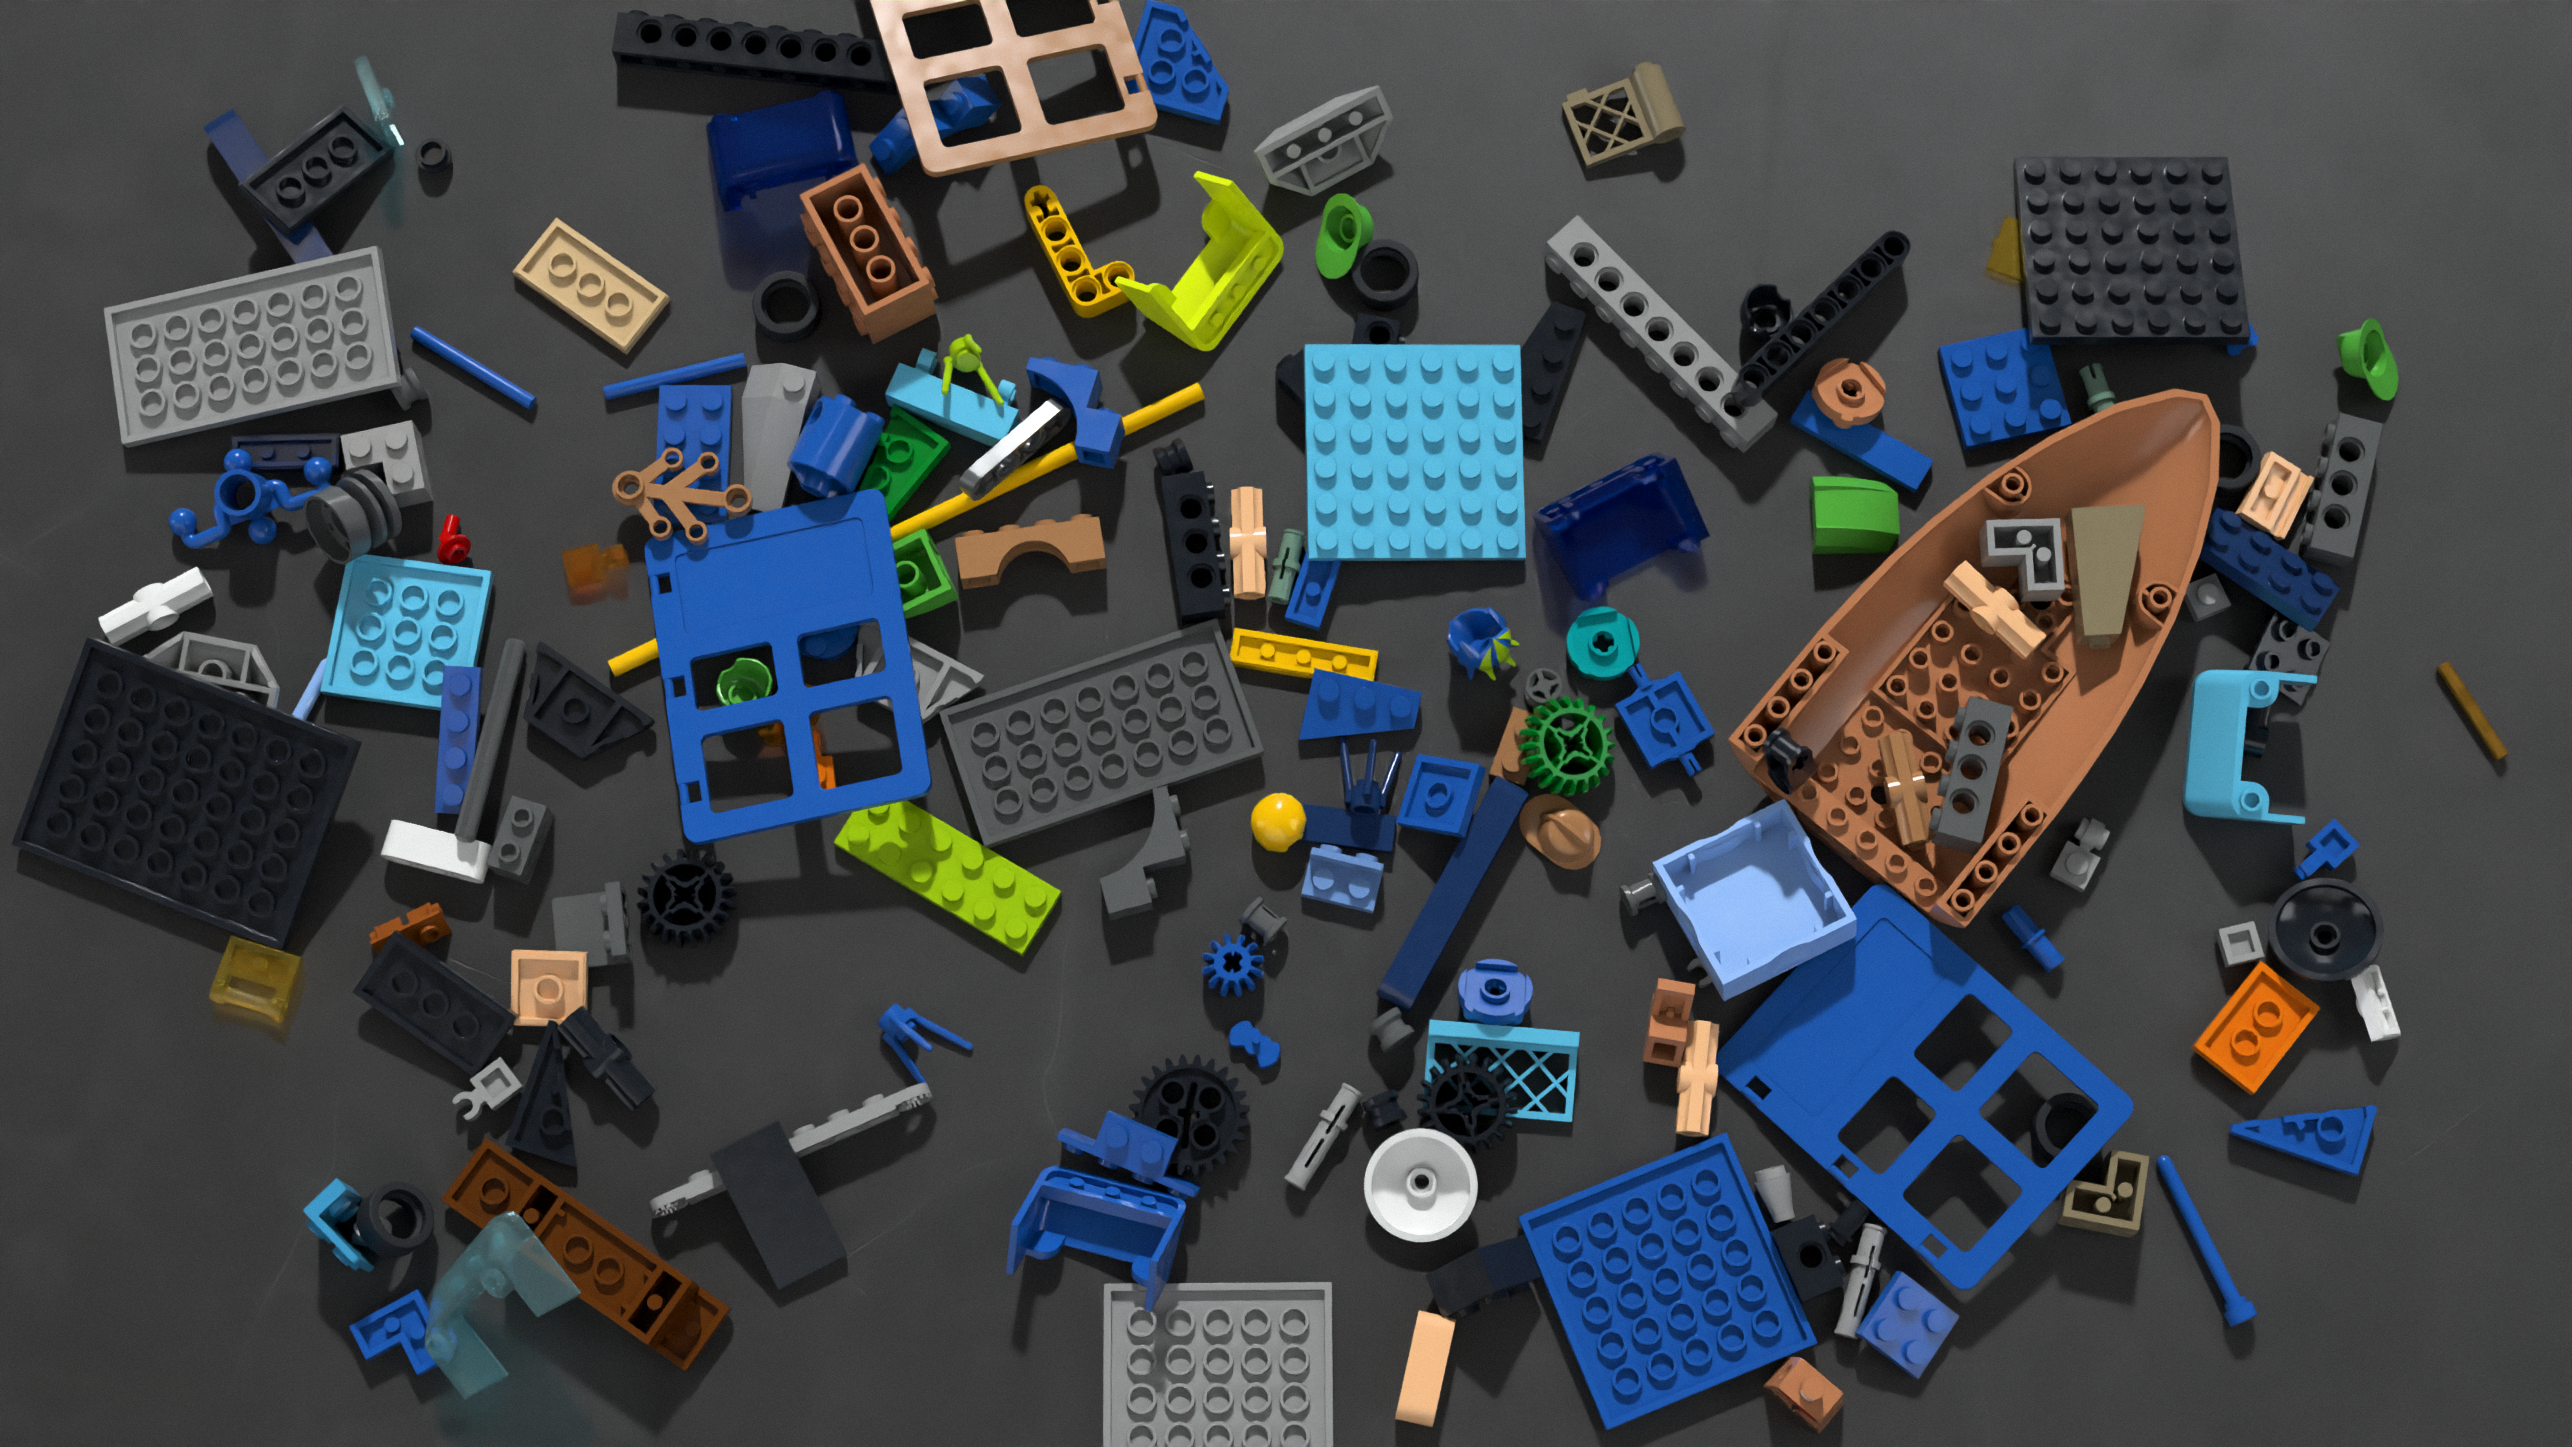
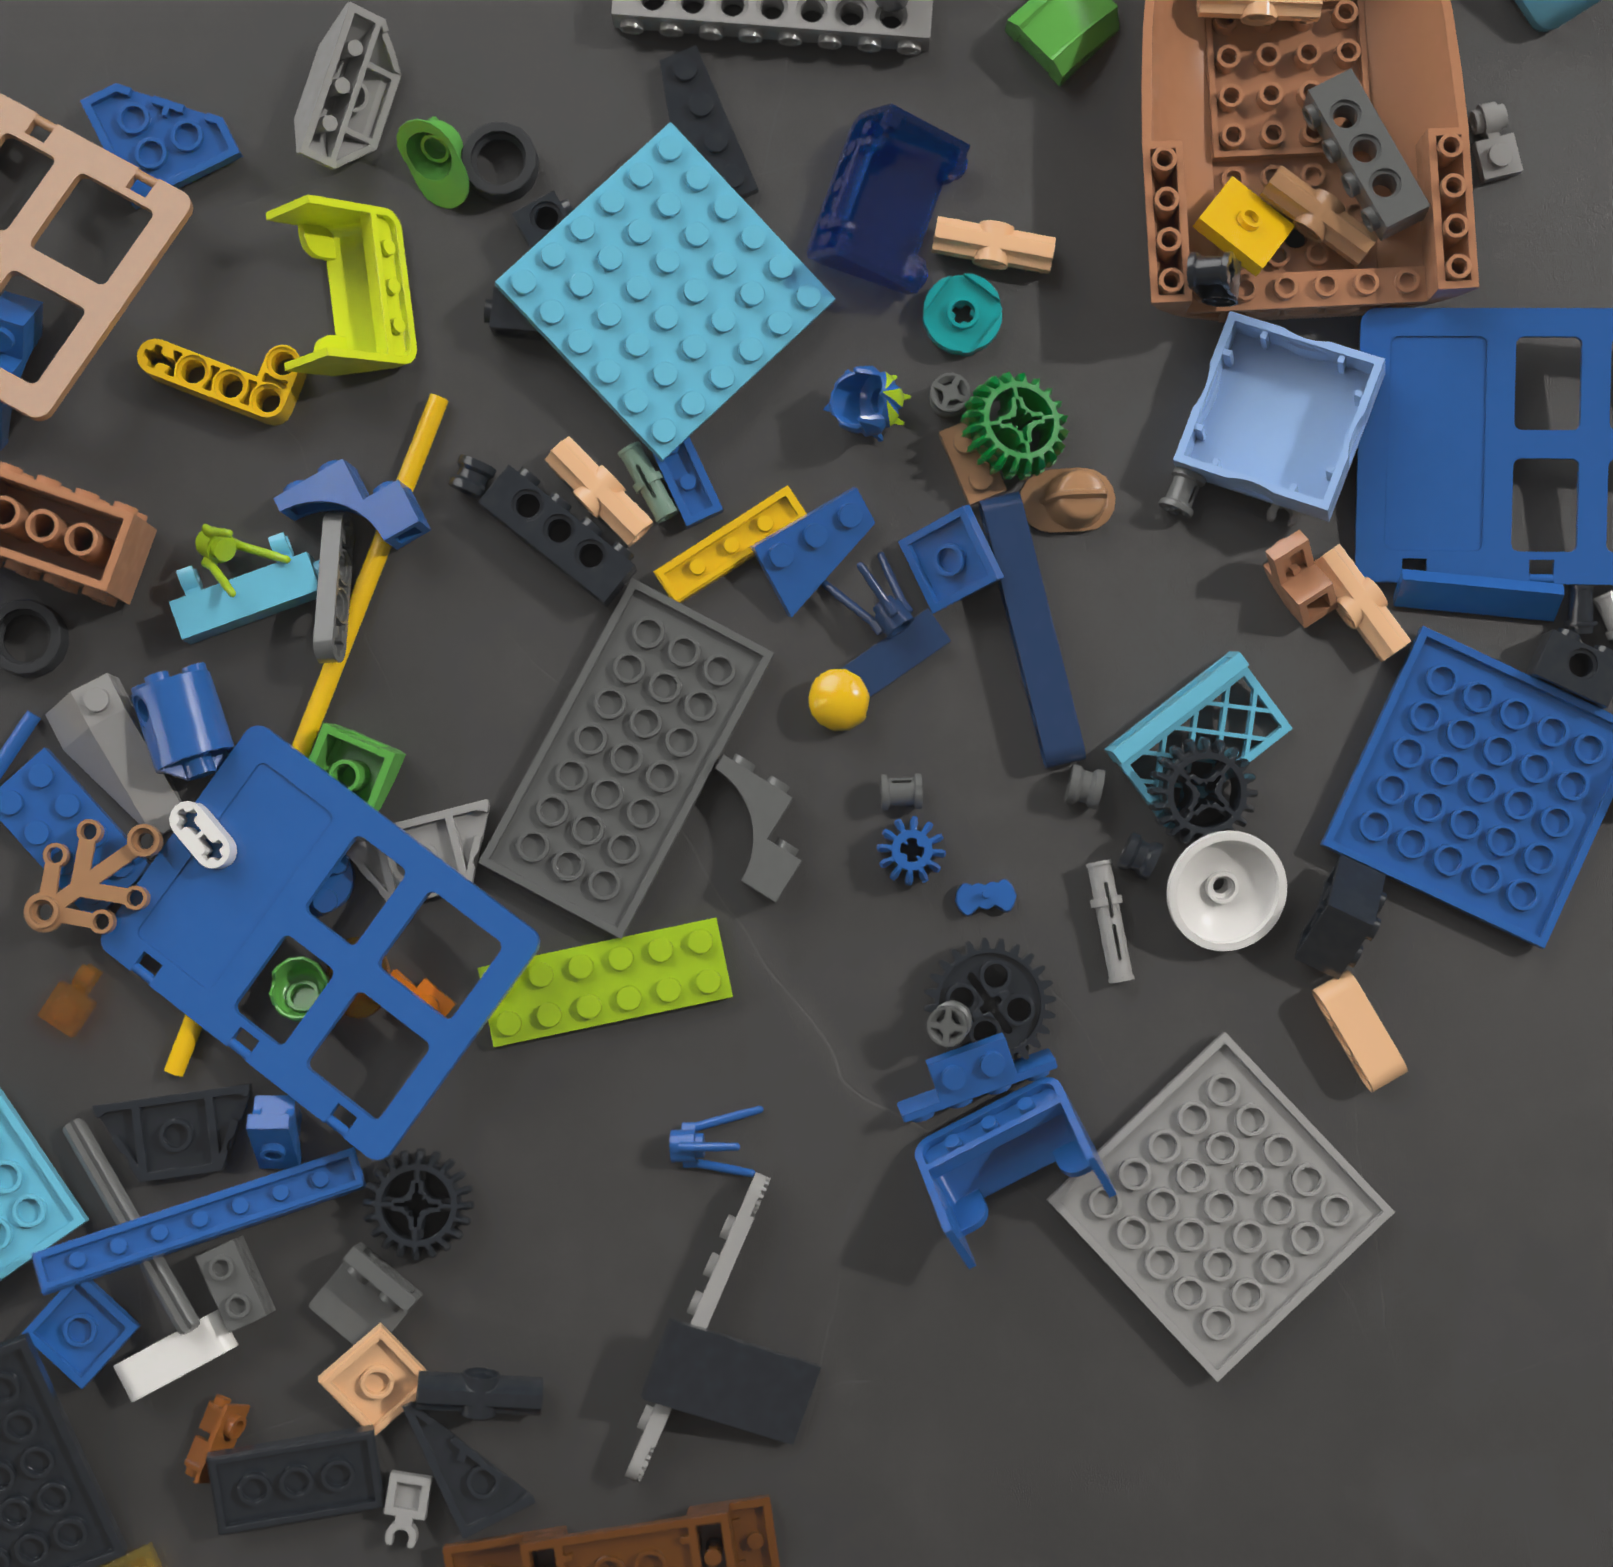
camera: 45 degrees left, 10 degrees up
(394, 779) = (82, 1331): none -> blue plate
(457, 735) = (76, 1216): blue plate -> none
(537, 775) = (198, 1221): none -> blue tile
(640, 765) = (275, 1131): none -> blue brick
(770, 530) = (196, 841): none -> white beam
(904, 459) = (248, 679): green wing -> none
(986, 555) = (457, 620): medium nougat arch -> none
(1141, 1093) = (947, 1032): none -> dark grey wheel
(1343, 878) = (932, 699): medium blue bracket -> none
(1491, 1009) = (1146, 701): plate -> none
(1664, 720) = (1070, 333): blue plate -> none
(1666, 616) = (993, 245): none -> light nougat piece
(1776, 1192) = (1502, 636): light grey cone -> none
(1784, 1146) = (1478, 595): none -> blue tile
(1845, 750) = (1245, 225): none -> yellow plate
(2032, 938) = (1518, 247): blue axle -> none

